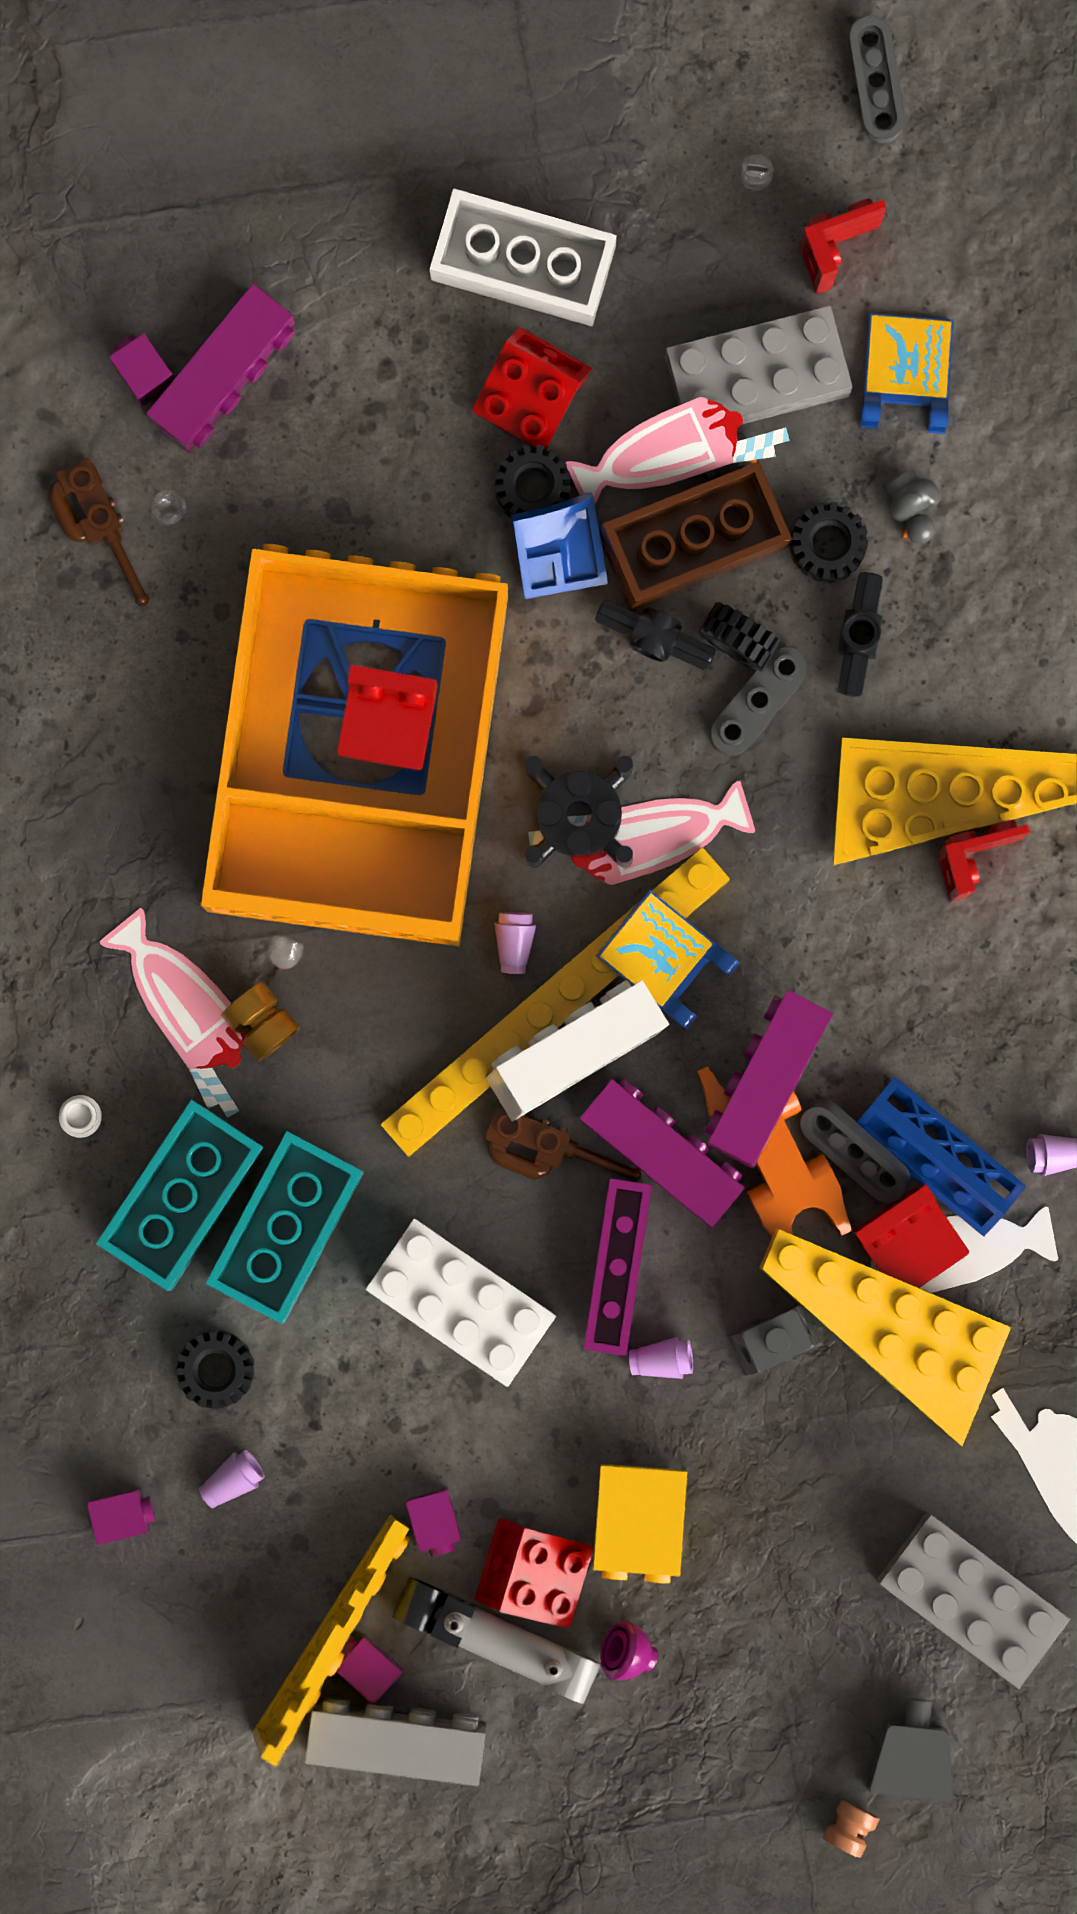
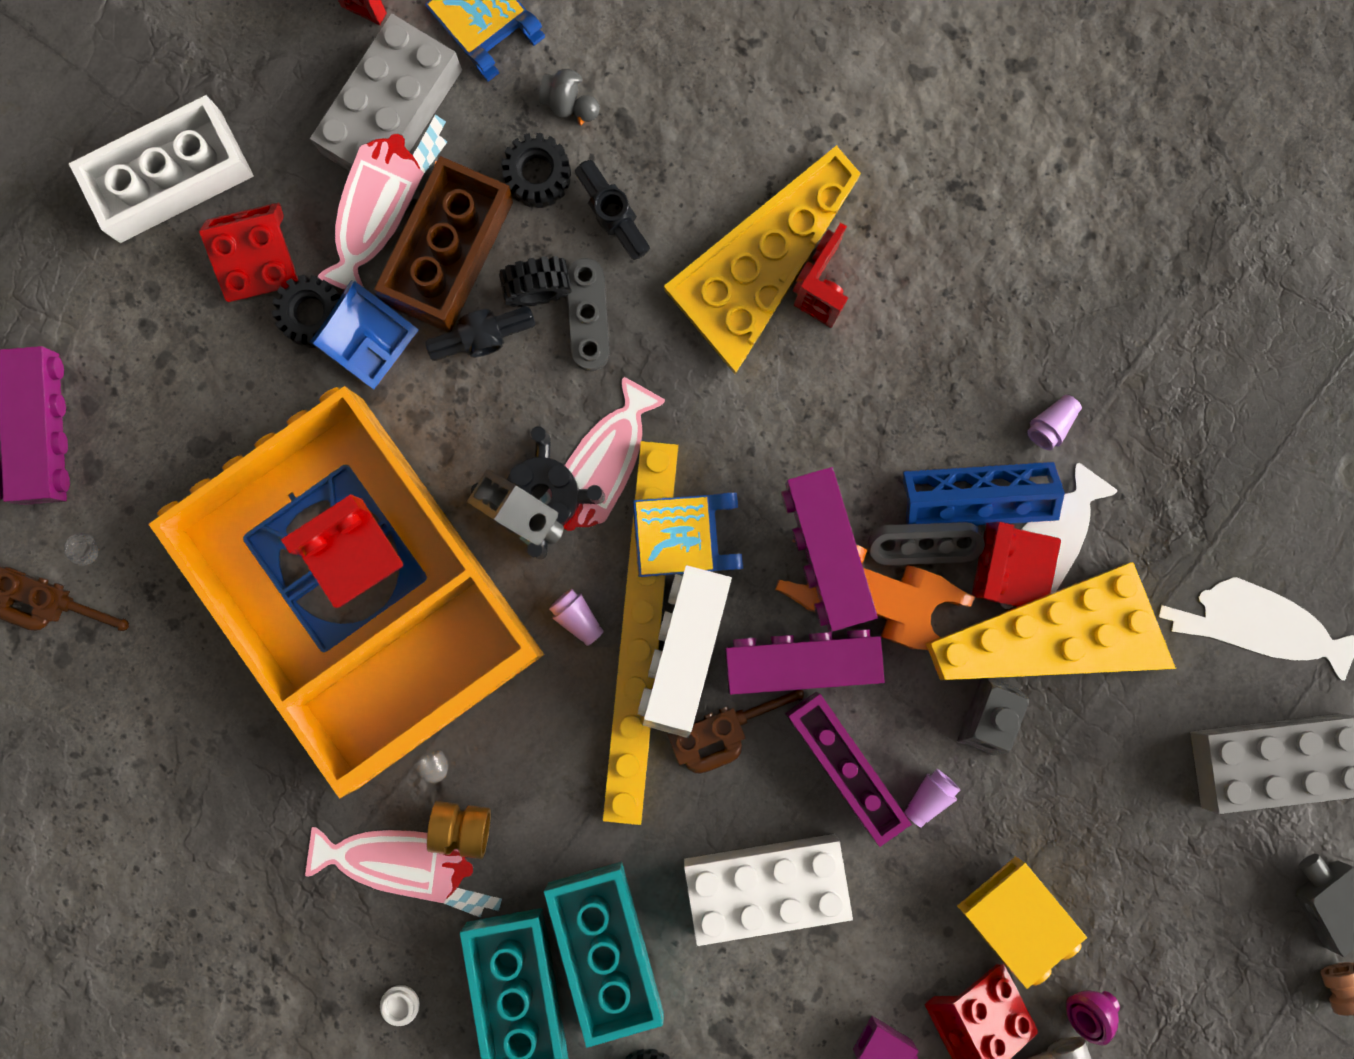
camera: 45 degrees left, 0 degrees up
(549, 808) = (516, 509): none -> torso

